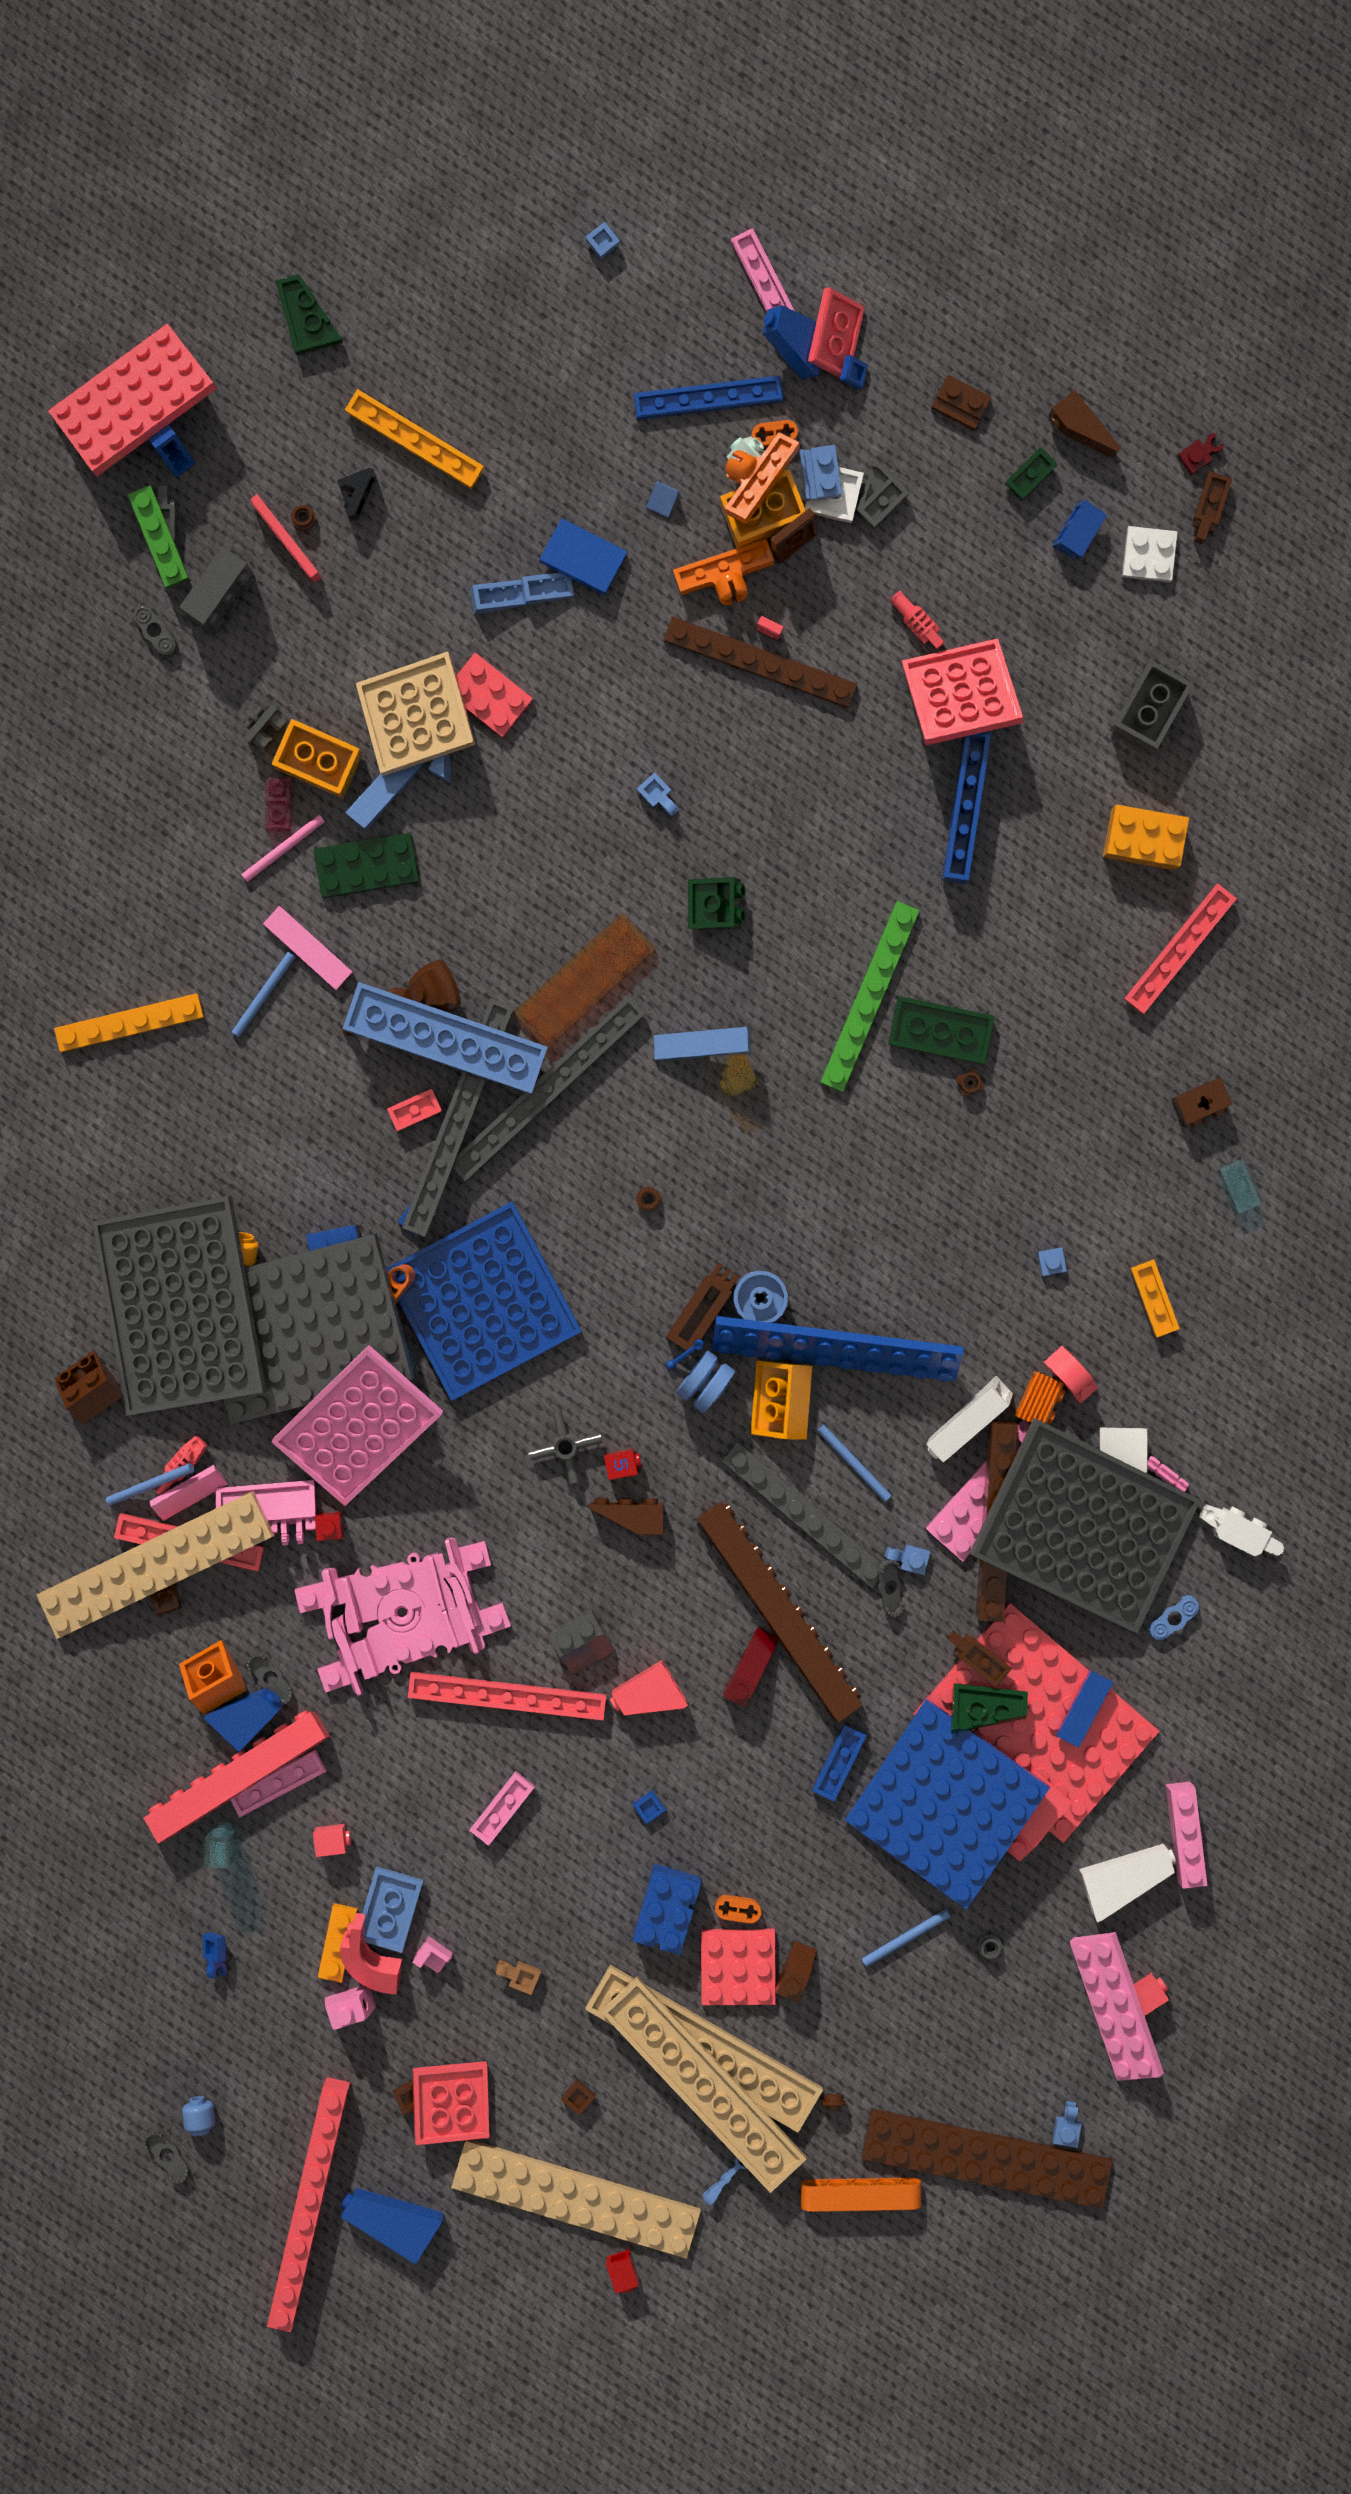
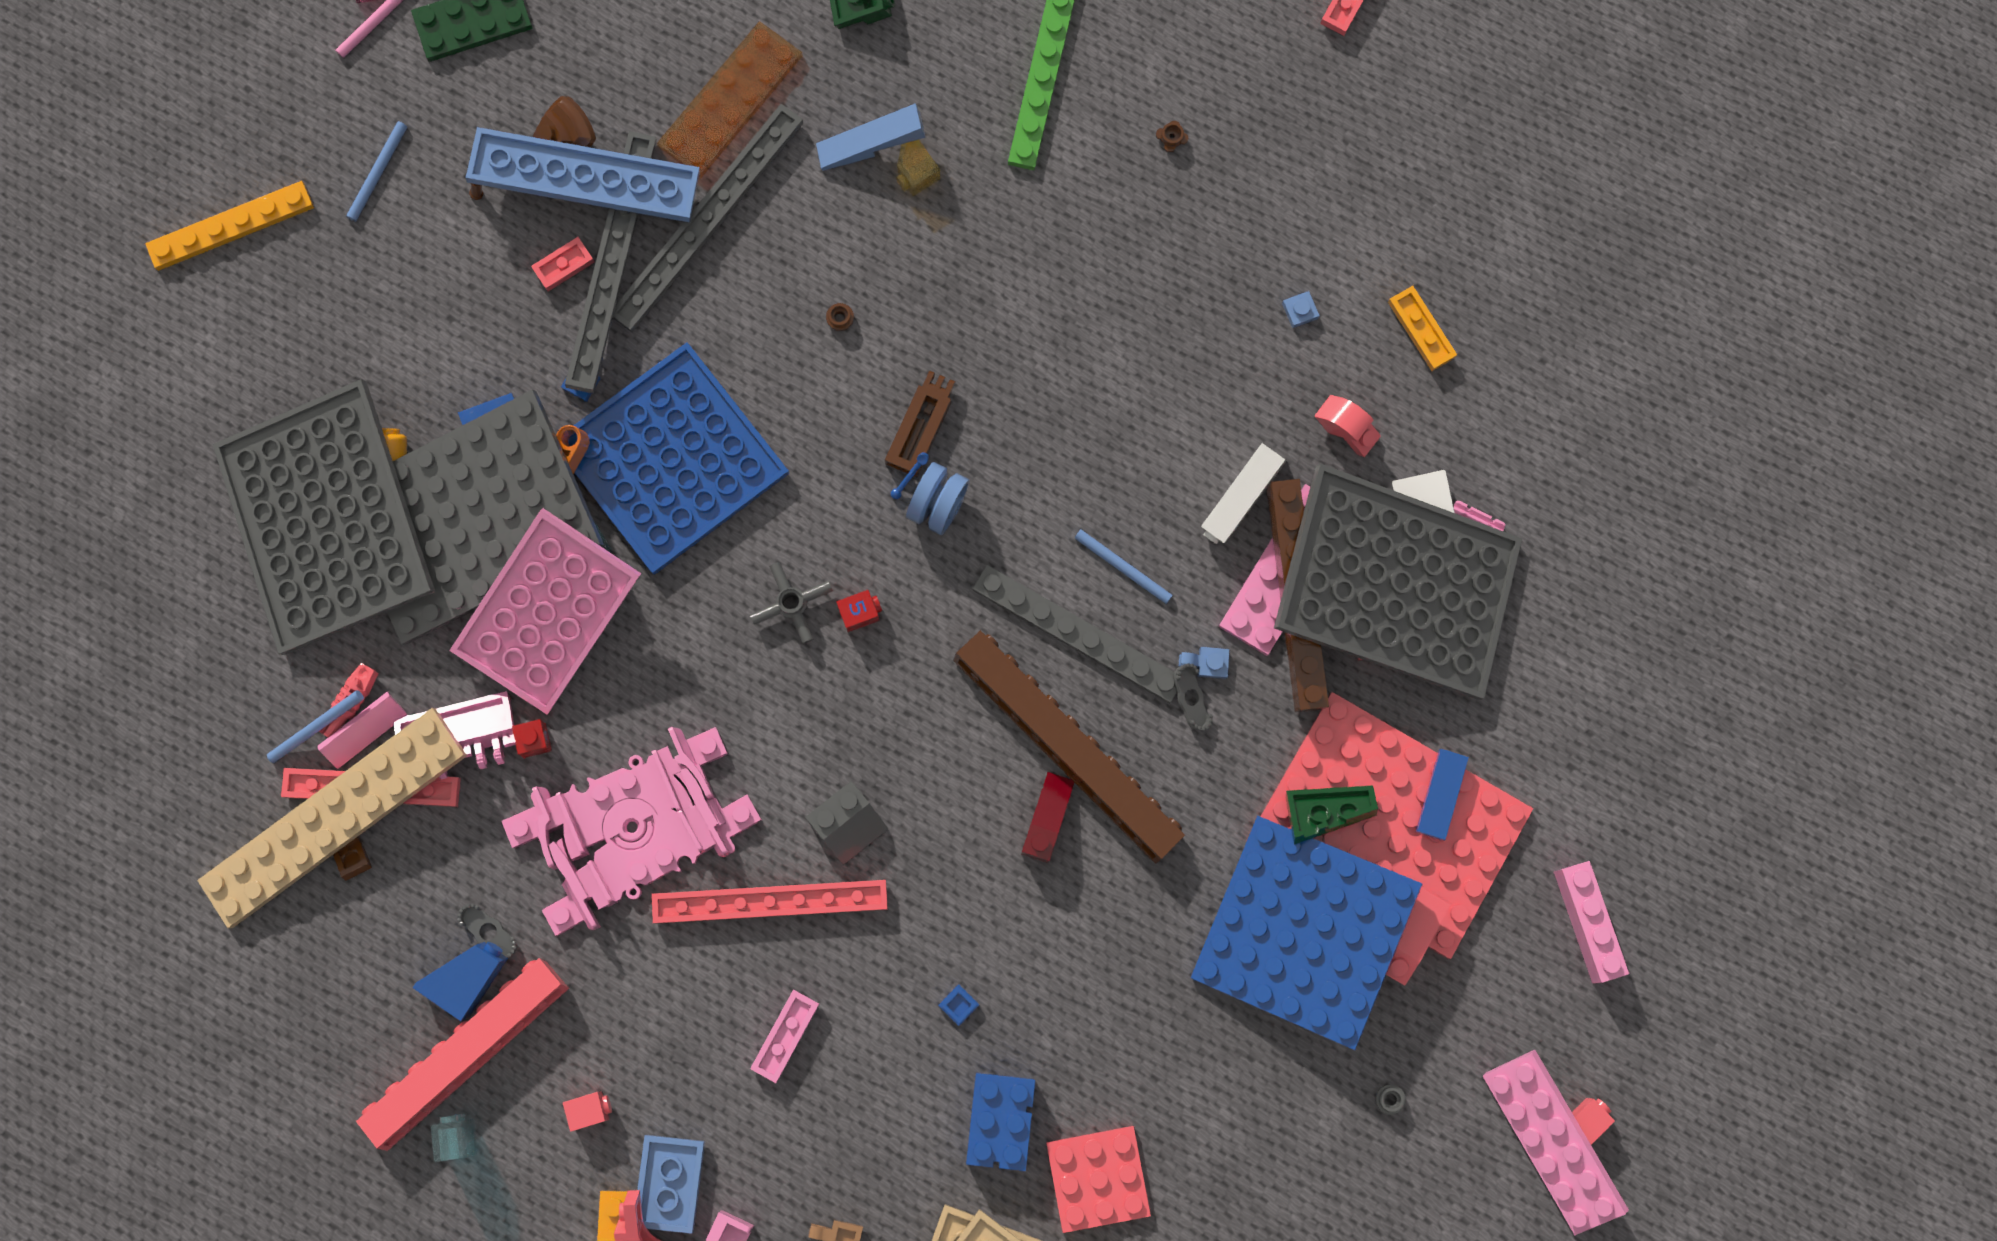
camera: 10 degrees left, 10 degrees down
(88, 1387) = (230, 630): reddish brown slope -> none
(212, 1677) = (418, 941): orange slope -> none
(280, 1782) = (515, 1055): bright pink tile -> none
(308, 948) = (419, 114): bright pink tile -> none
(638, 1517) = (887, 667): reddish brown slope -> none
(649, 1692) = (935, 866): coral slope -> none
(737, 1915) = (1084, 1100): orange beam -> none
(760, 1282) = (996, 407): medium blue wheel -> none
(781, 1400) = (1028, 508): light orange slope -> none
(795, 1971) = (1167, 1169): reddish brown slope -> none
(837, 1348) = (1079, 437): blue plate -> none
(839, 1762) = (1171, 911): blue plate -> none
(906, 1937) = (1290, 1107): medium blue bar -> none
(941, 1030) = (1130, 85): dark green plate -> none
(980, 1658) = (1310, 756): reddish brown hinge -> none
(1040, 1398) = (1318, 447): orange brick -> none
(1125, 1878) = (1528, 990): white slope -> none
(1160, 1628) = (1509, 690): medium blue piece -> none
(1187, 1103) = (1436, 100): reddish brown brick -> none
(1239, 1186) = (1489, 194): clear light blue plate -> none
(1240, 1532) = (1575, 565): white hinge -> none

